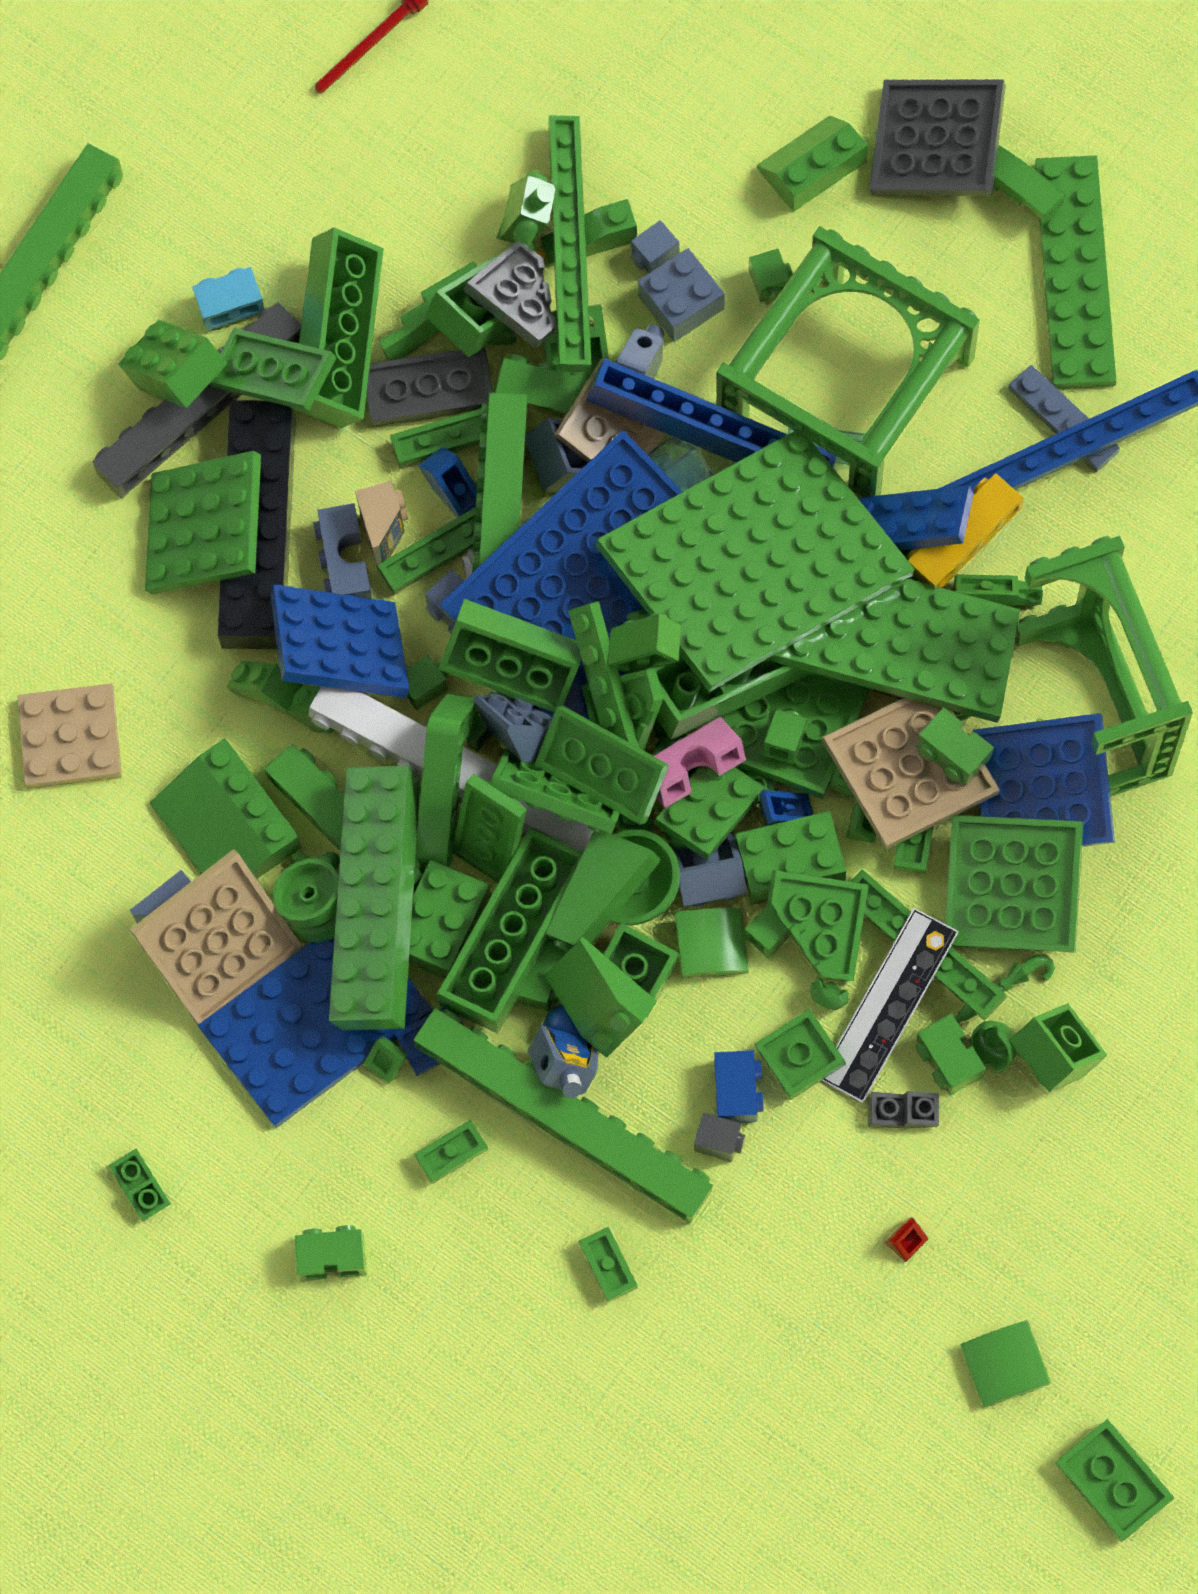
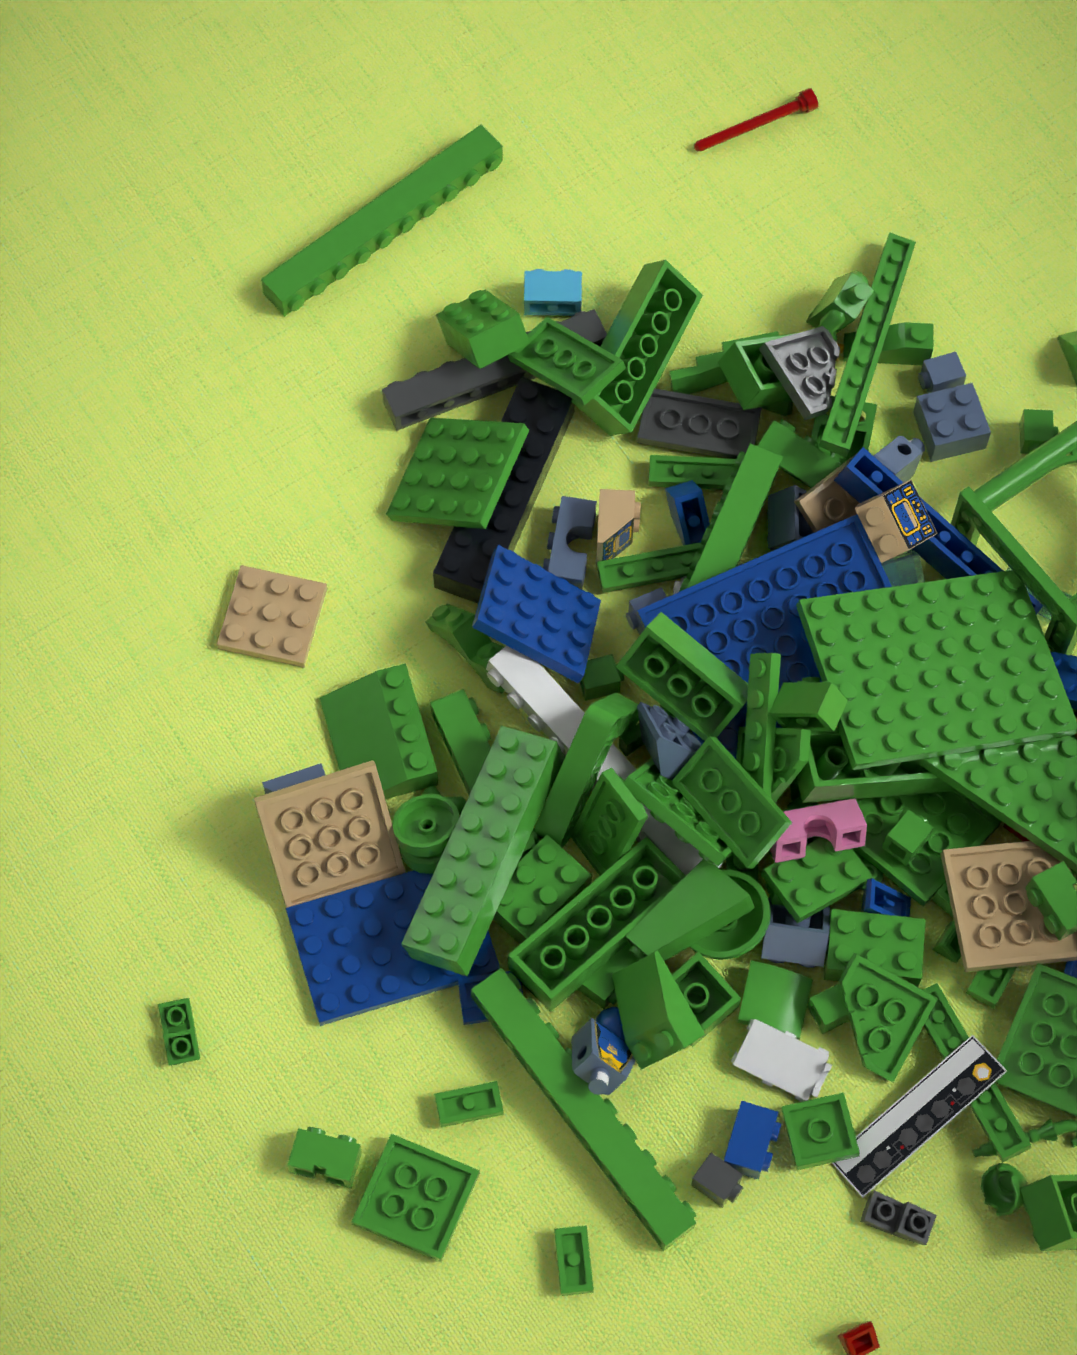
camera: 15 degrees right, 5 degrees down
(385, 1059) = (441, 999): bright green plate -> none
(433, 1260) = (416, 1197): none -> bright green plate
(663, 423) = (895, 521): none -> slope
(740, 999) = (782, 1060): none -> white piece
(828, 994) = (865, 1086): bright green plate -> none
(952, 1062) = (956, 1176): bright green brick -> none

